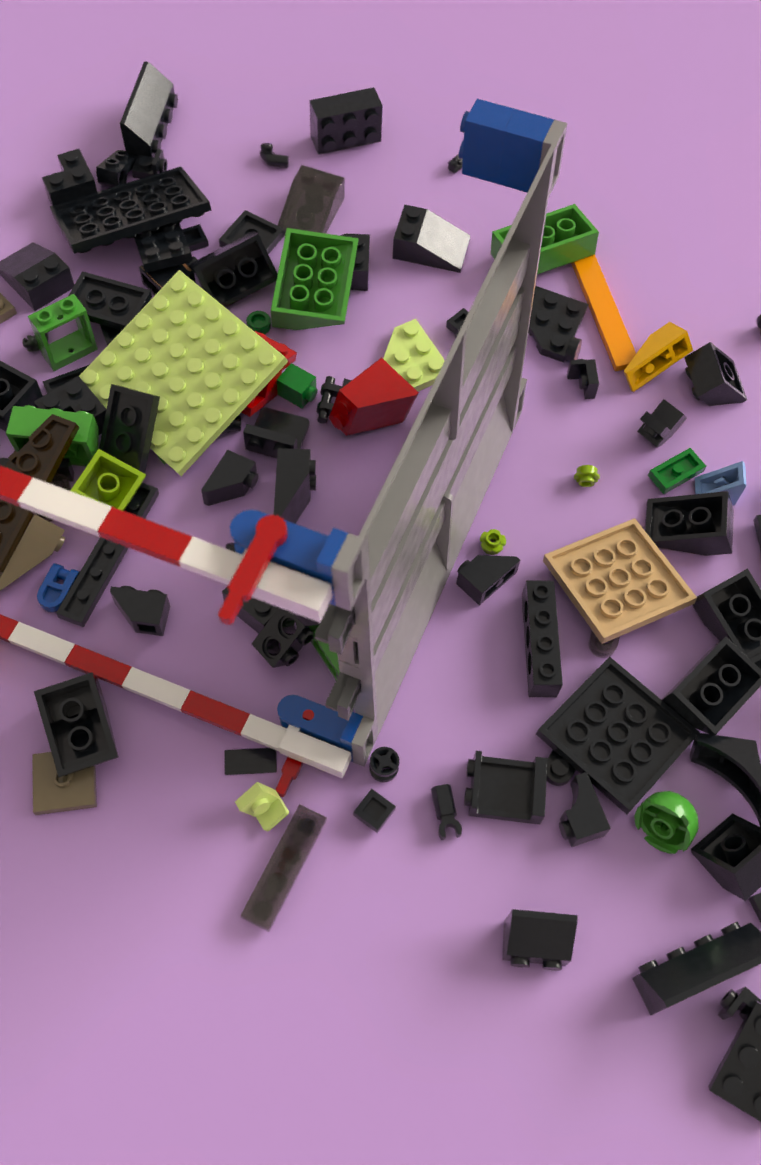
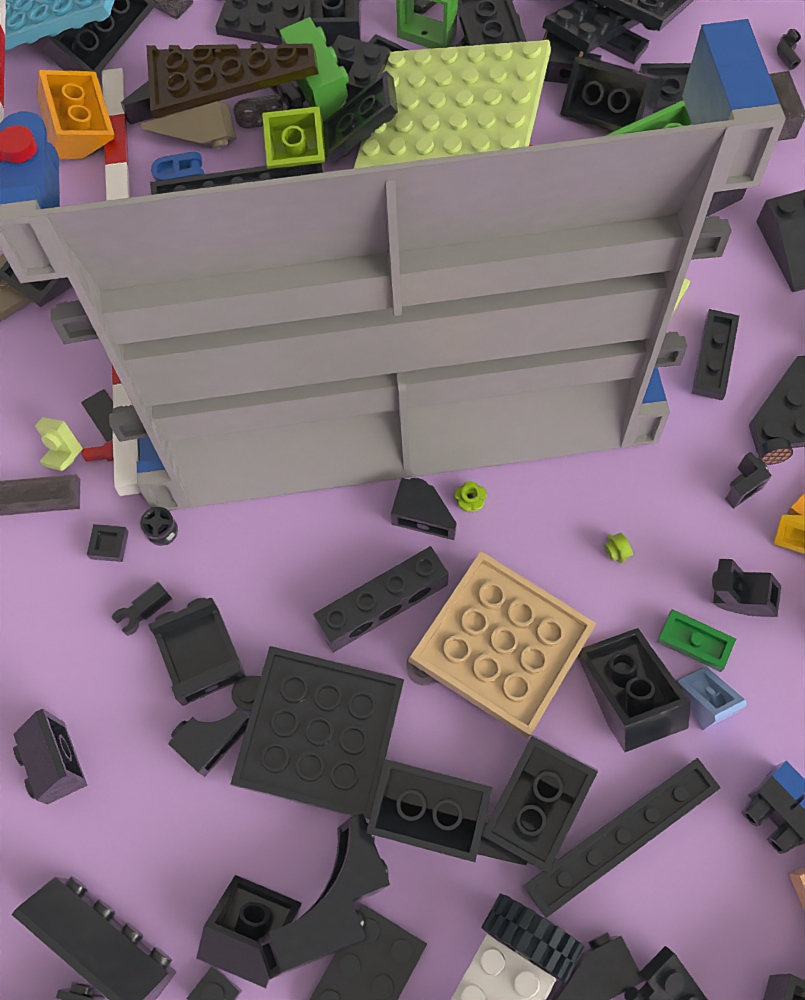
camera: 65 degrees right, 5 degrees up
(667, 821) = (246, 832): bright green cylinder -> none

